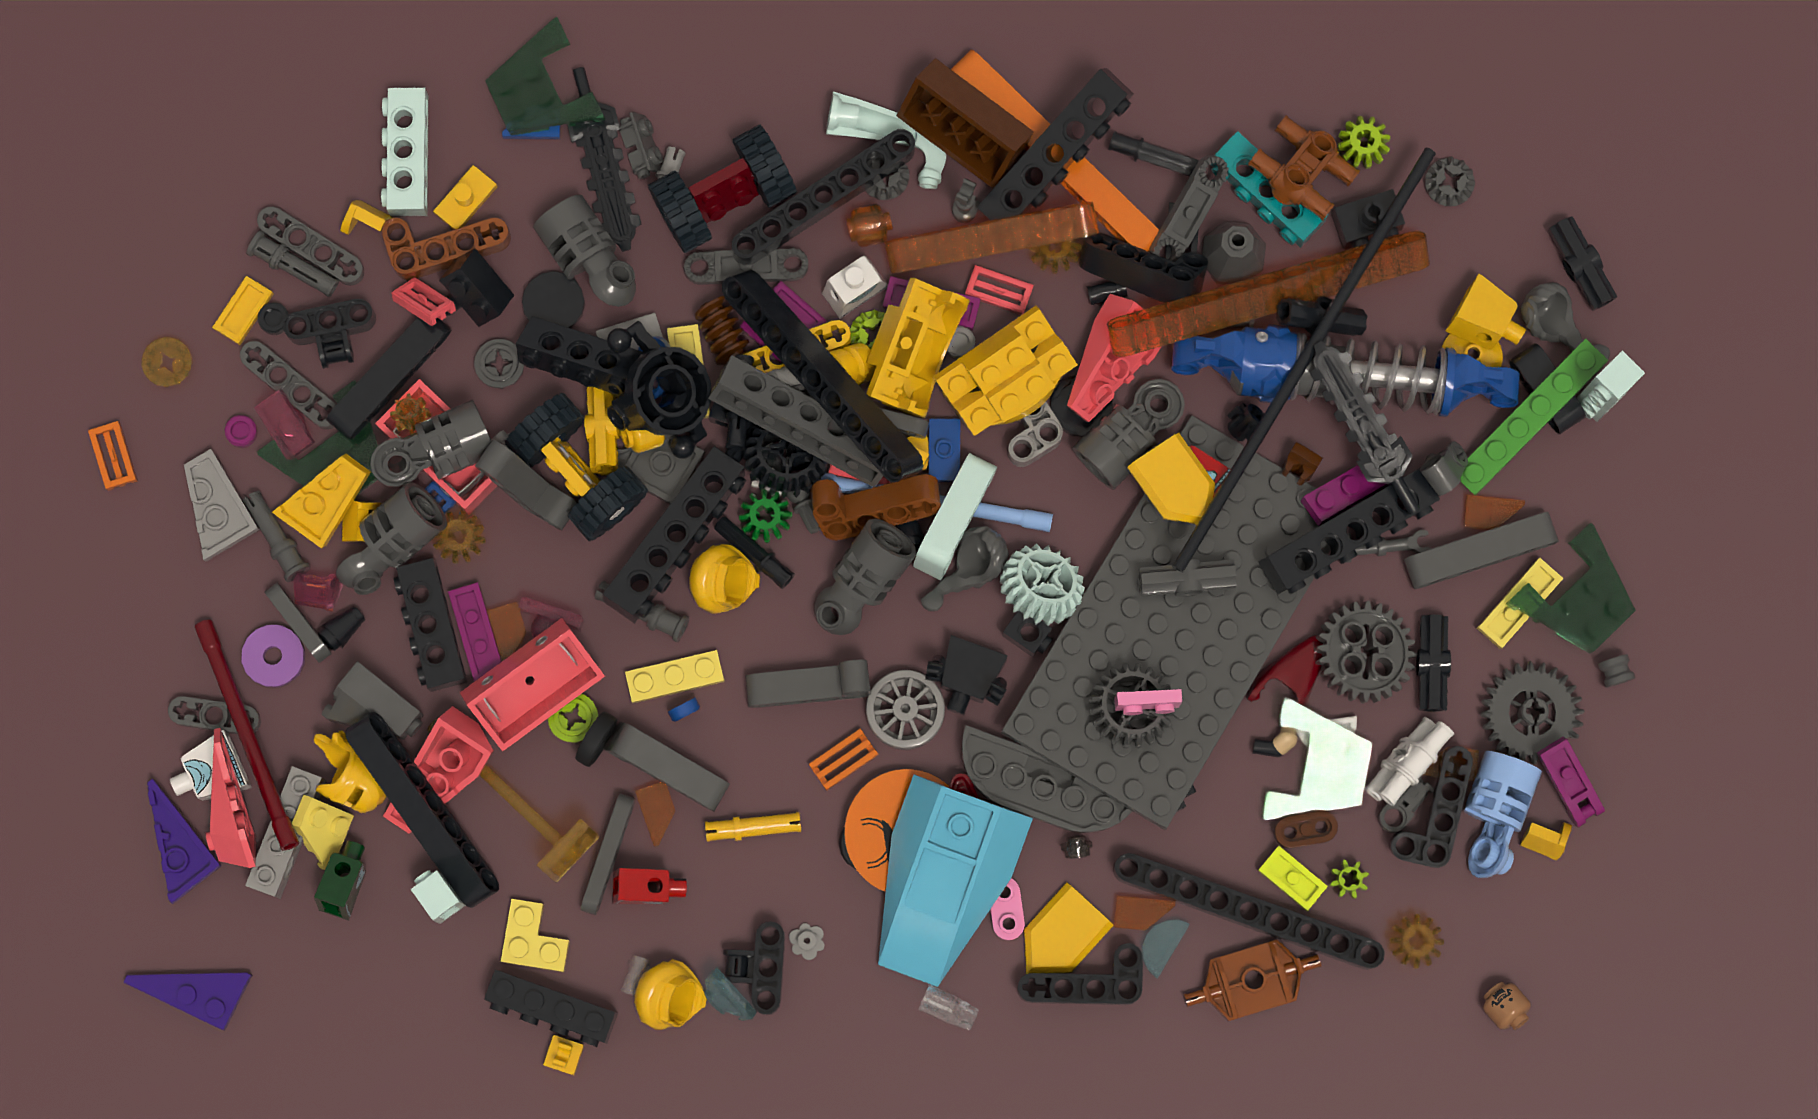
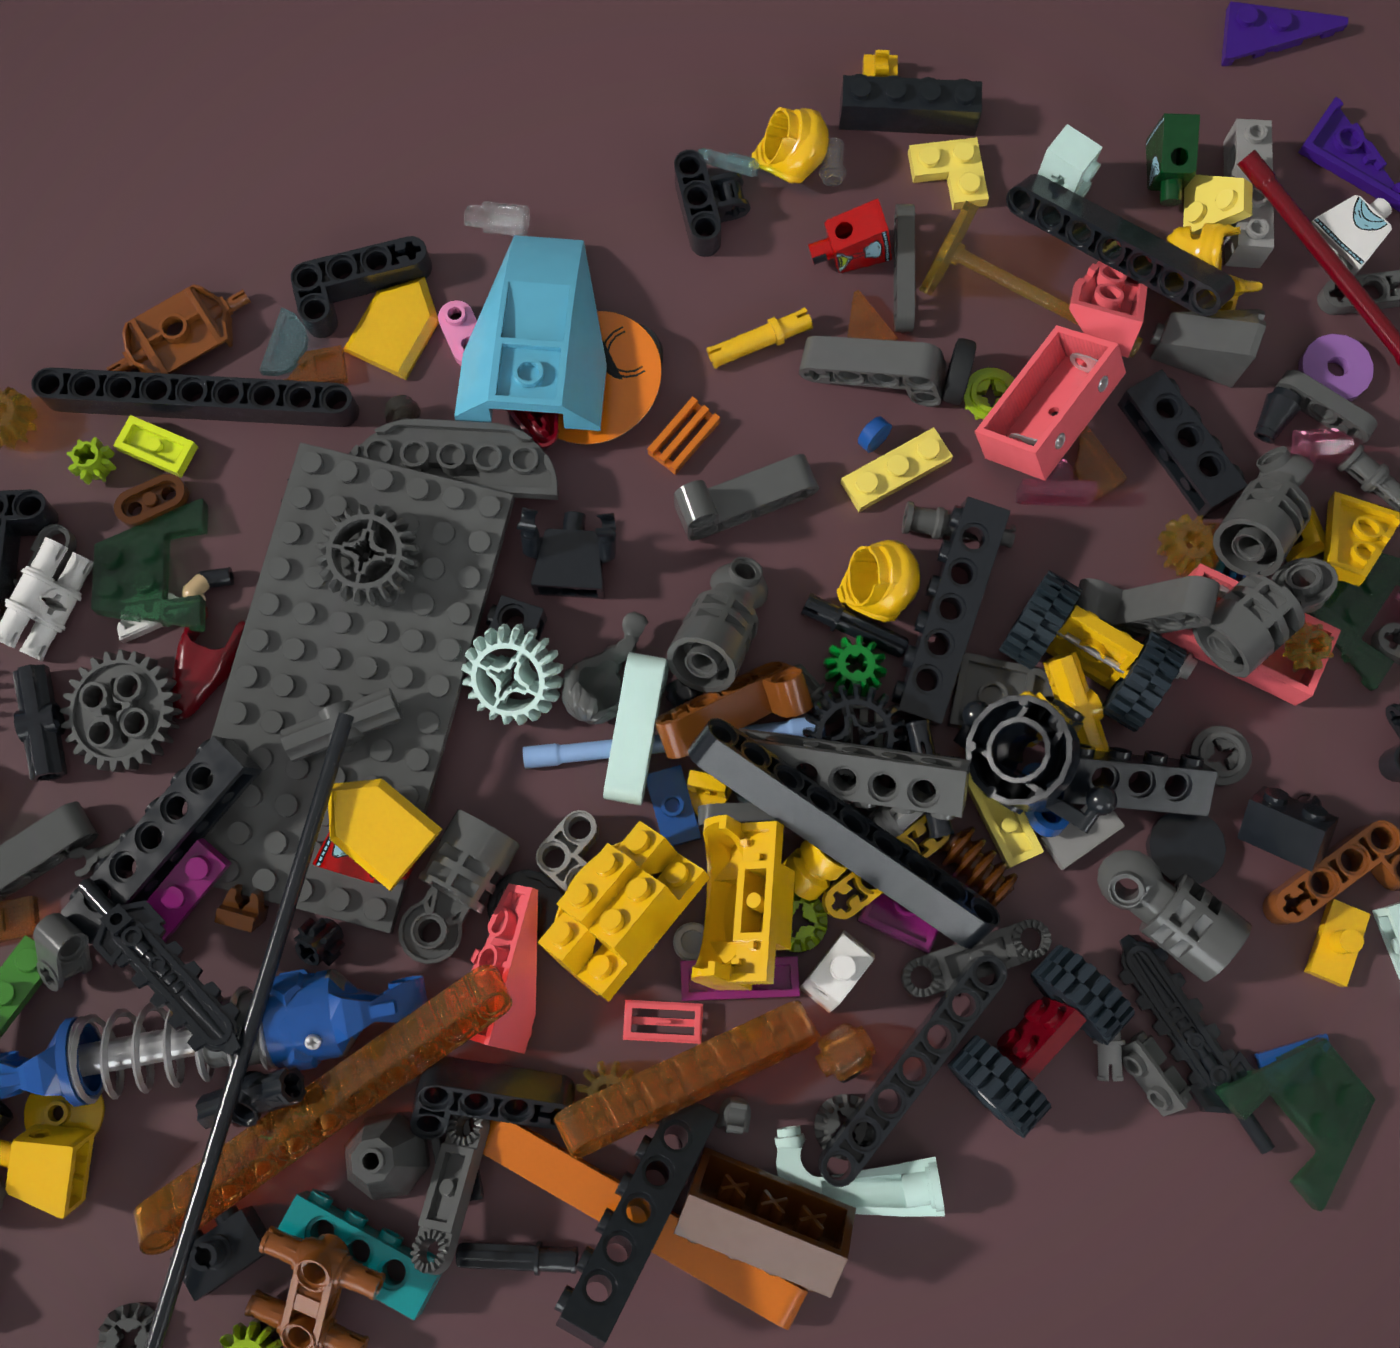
camera: 165 degrees right, 5 degrees down
(230, 823) = (1324, 187): coral wedge -> none
(387, 376) = (1343, 701): black beam -> none
(418, 303) = (1322, 785): coral tile -> none
(475, 629) = (1132, 453): magenta plate -> none
(809, 950) = (660, 254): light grey plant -> none
(905, 709) = (632, 502): light grey wheel -> none
(1100, 292) = (534, 1057): black pin -> none
(1161, 700) = (329, 553): bright pink plate -> none

